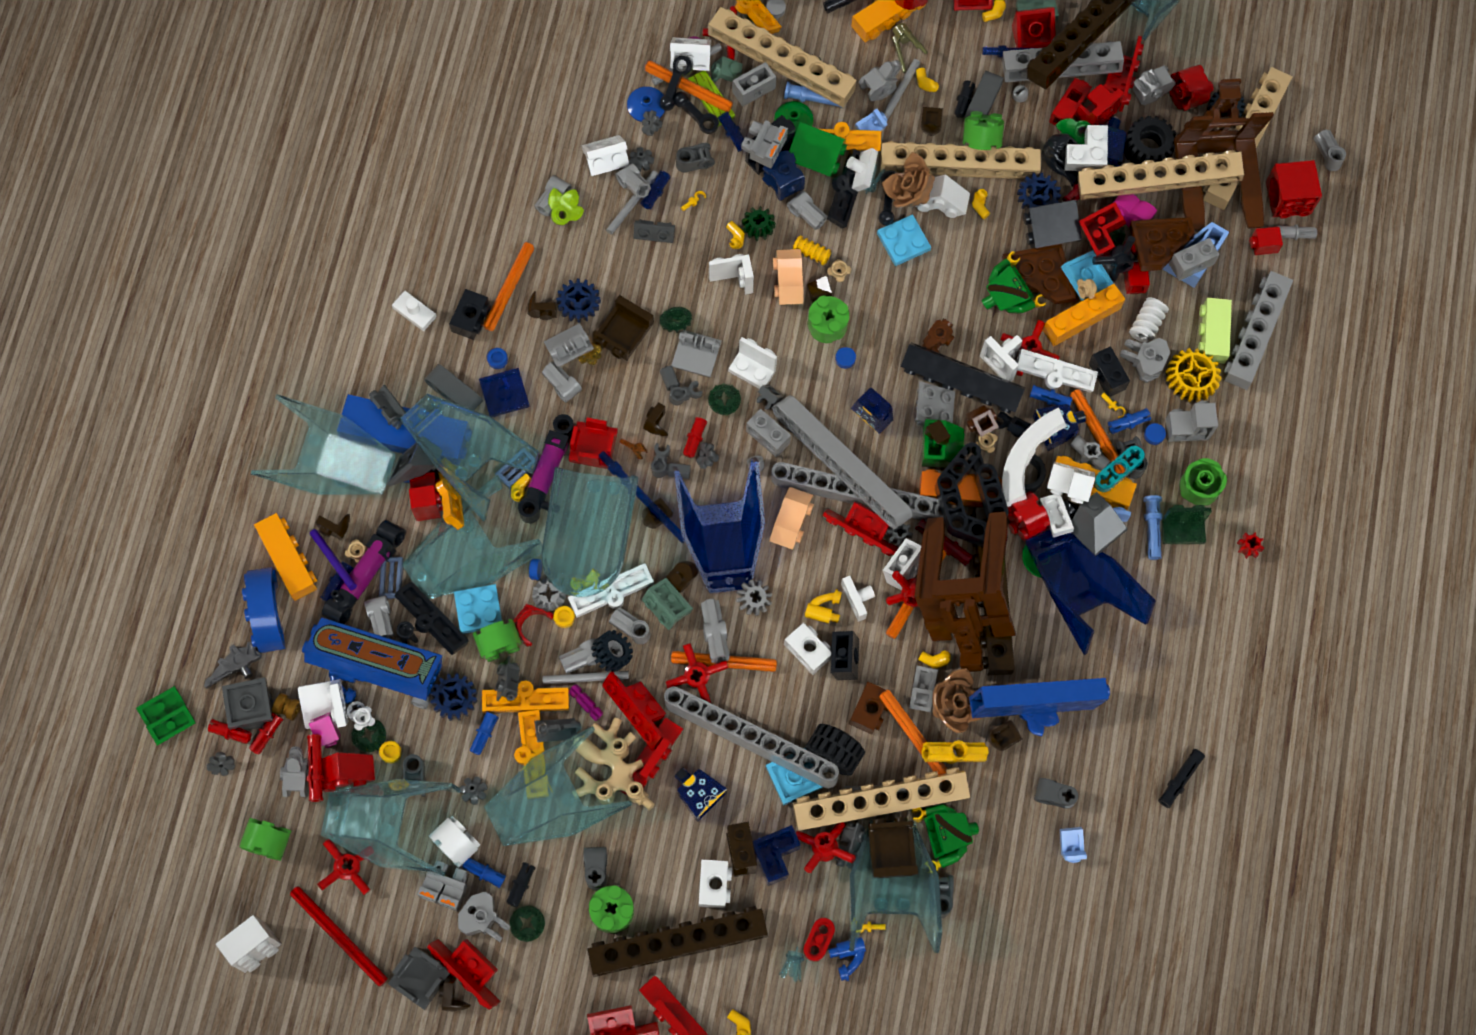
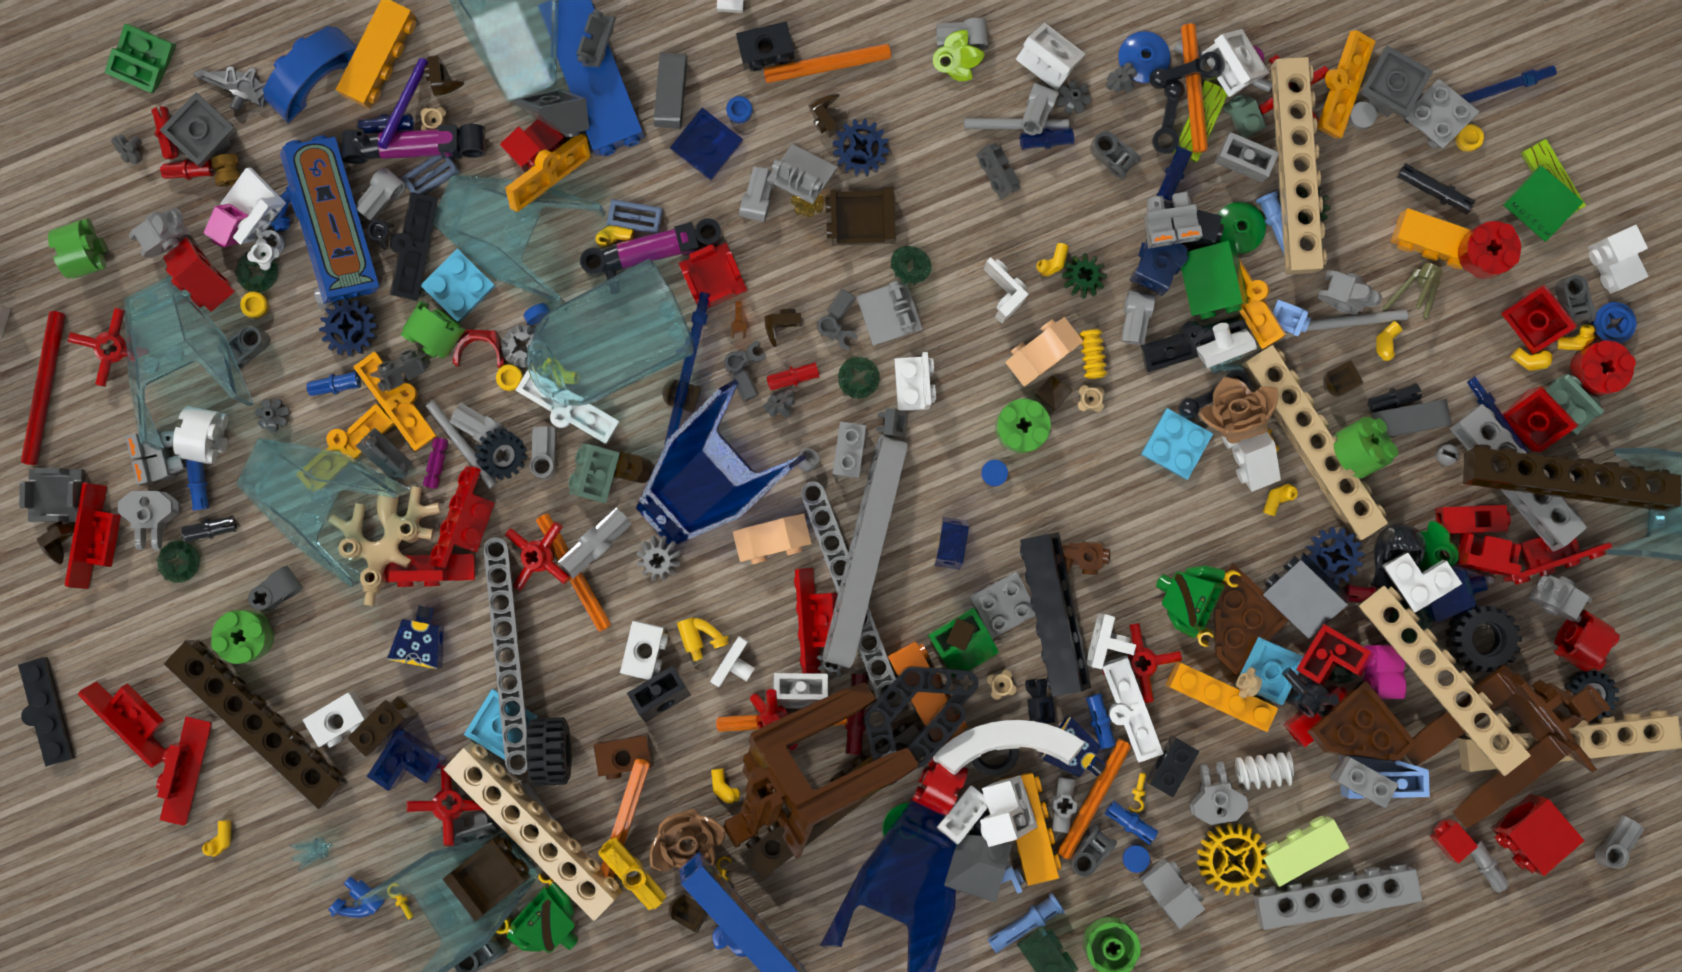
camera: 60 degrees right, 15 degrees up
(315, 775) = (183, 239): red pin -> none
(464, 441) = (603, 139): clear light blue windscreen -> none
(693, 200) = (1063, 187): yellow hand -> none
(818, 939) = (354, 860): red plate -> none
(923, 688) = (684, 795): light grey slope -> none
(982, 420) = (1018, 667): reddish brown brick -> none
(1116, 477) = (1078, 862): teal beam -> none

